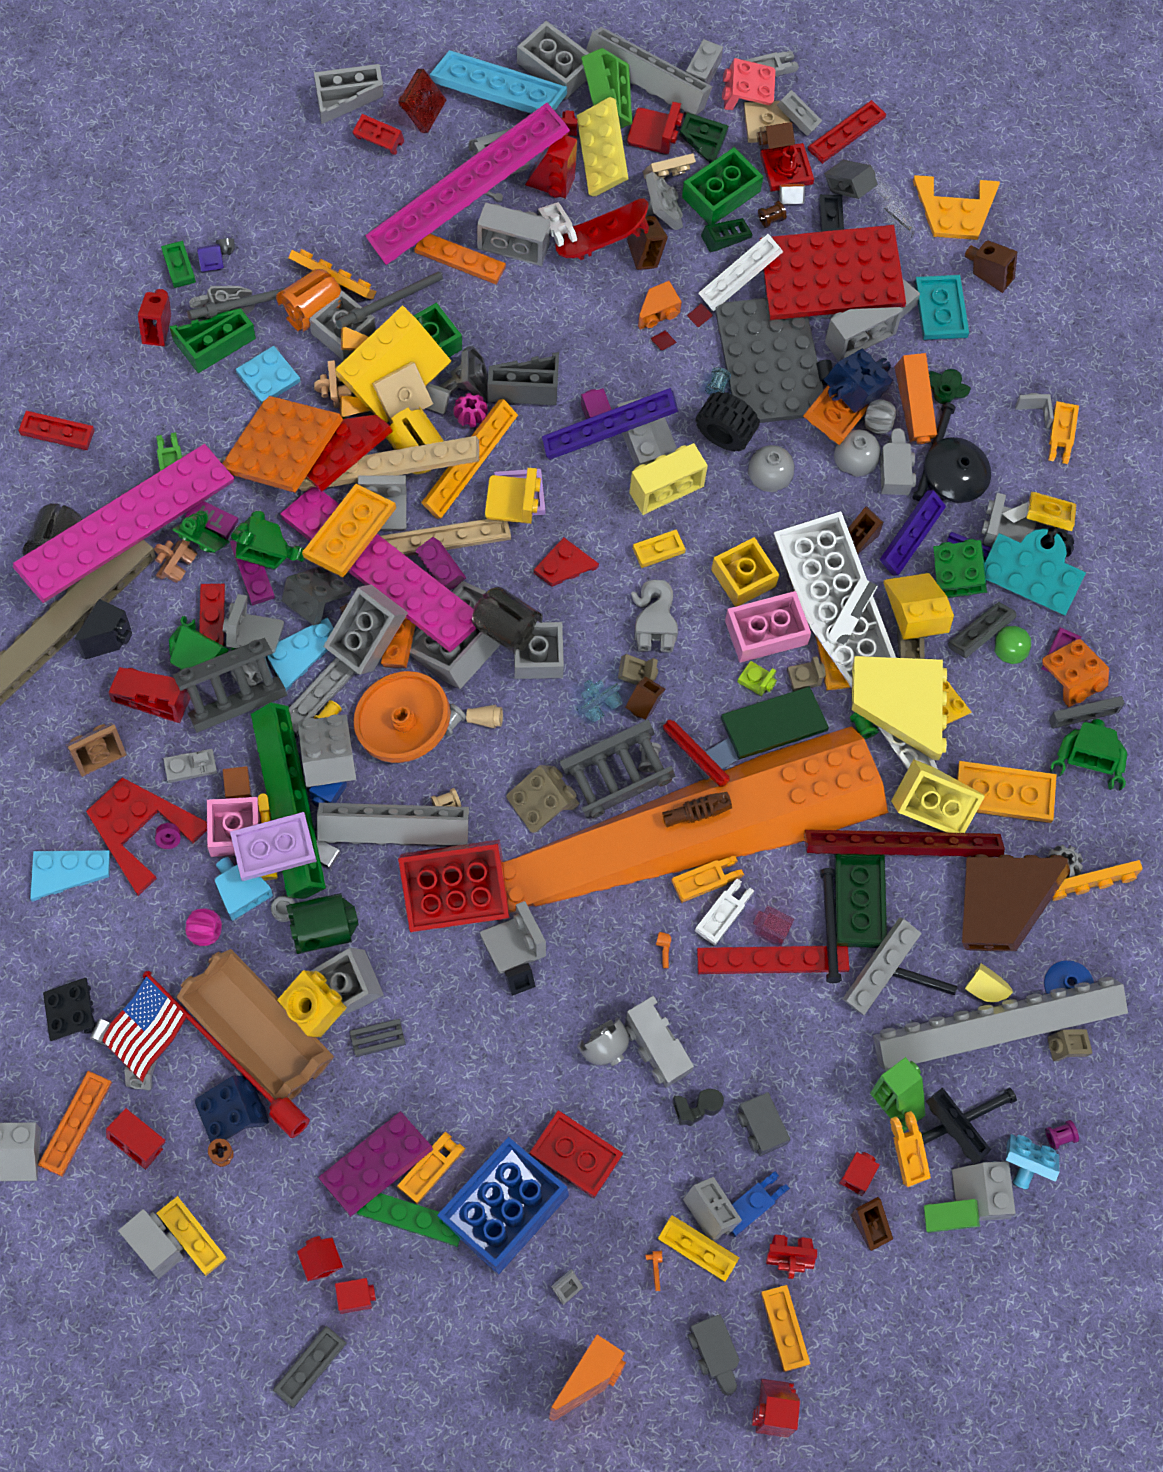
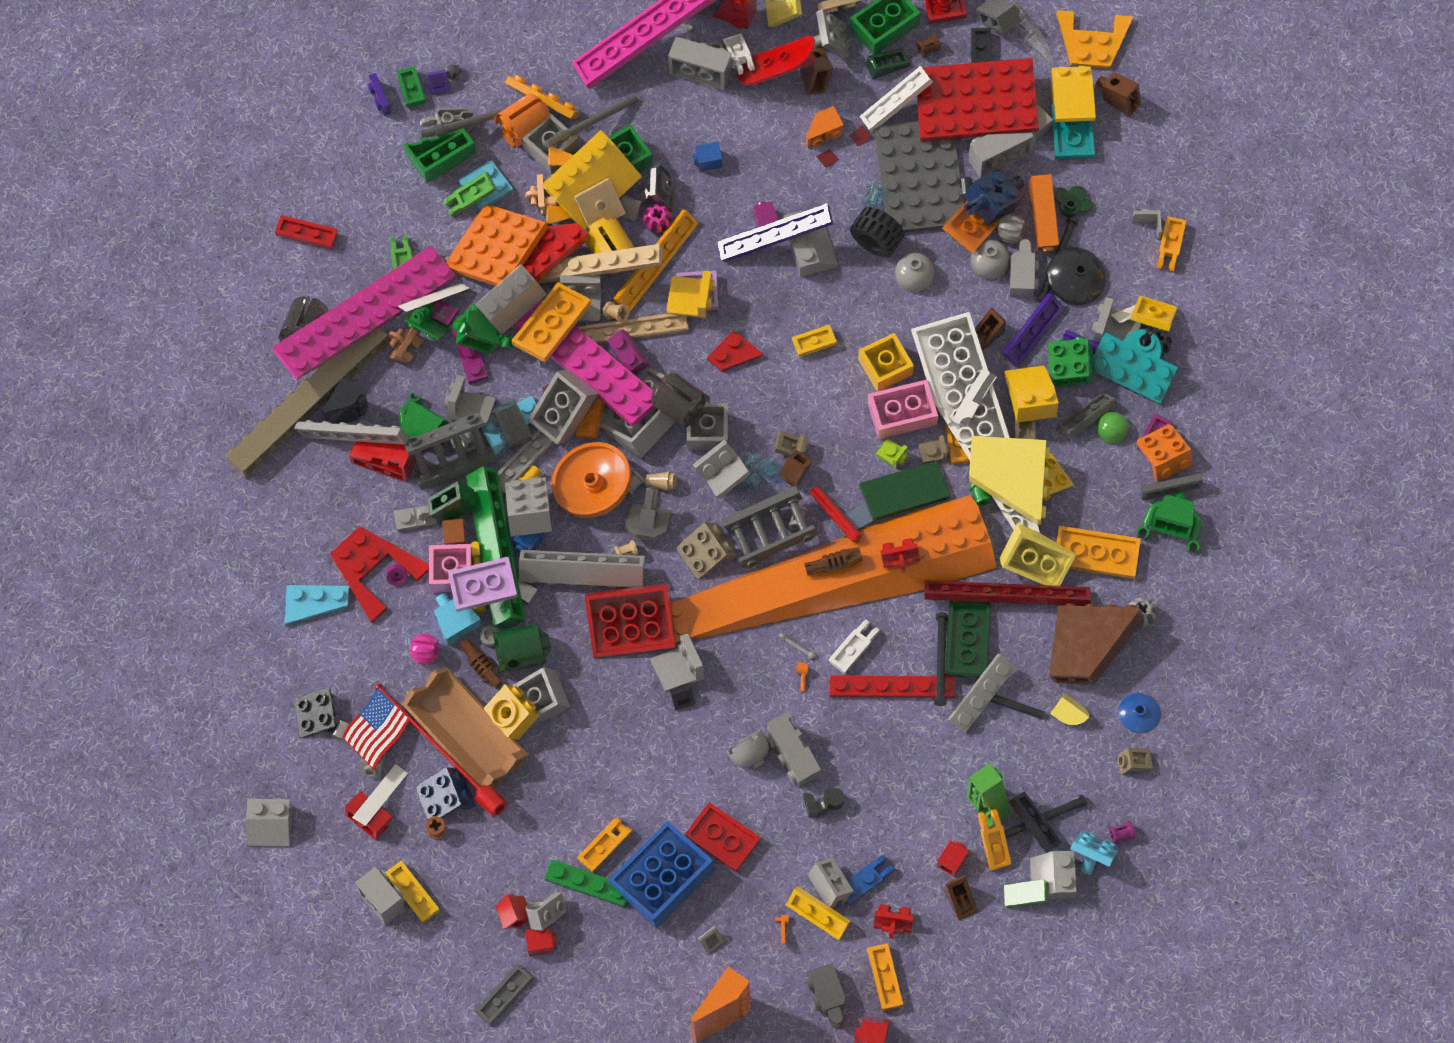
camera: 10 degrees right, 0 degrees up
(75, 1123) = (319, 802): orange tile -> none
(96, 748) = (339, 502): medium nougat slope -> none
(112, 665) = (348, 432): none -> light grey plate
(137, 265) = (376, 88): none -> dark purple plate
(149, 1113) = (380, 795): none -> white sticker
(154, 307) = (390, 127): red torso -> none
(210, 502) = (433, 297): none -> white sticker
(212, 611) = (435, 388): red plate -> none
(234, 746) = (452, 502): none -> dark green brick
(250, 383) = (470, 193): none -> bright green hinge
(273, 943) = (480, 663): none -> reddish brown hinge
(300, 503) = (511, 299): none -> light grey slope
(304, 652) = (511, 424): none -> clear smoke brick
(310, 591) = (518, 372): dark grey bracket -> none
(359, 1260) = (546, 912): none -> light grey plate
(375, 1163) = (560, 839): magenta plate -> none
(380, 1047) = (581, 737): dark grey tile -> none
(428, 518) = (618, 312): none -> tan bush
(460, 258) = (654, 83): orange plate -> none
(470, 763) = (648, 520): none -> flat silver piece
(525, 381) = (705, 194): dark grey wedge -> none
(526, 339) = (708, 156): none -> blue brick
(558, 701) = (722, 469): none -> light grey bracket
(655, 621) = (808, 402): light grey hips -> none
(668, 478) = (824, 280): light yellow brick -> none
(672, 922) = (811, 655): none -> light grey hinge
(705, 879) = (839, 619): light orange hinge -> none
(763, 1124) = (876, 818): dark grey brick -> none
(773, 925) = (893, 658): clear pink brick -> none
(777, 801) = (900, 555): none -> red hips
(792, 193) = (947, 27): flat silver piece -> none
(941, 265) = (1073, 94): none -> yellow slope
(1001, 1023) = (1079, 741): light grey brick -> none
(1102, 878) = (1173, 626): light orange plate -> none

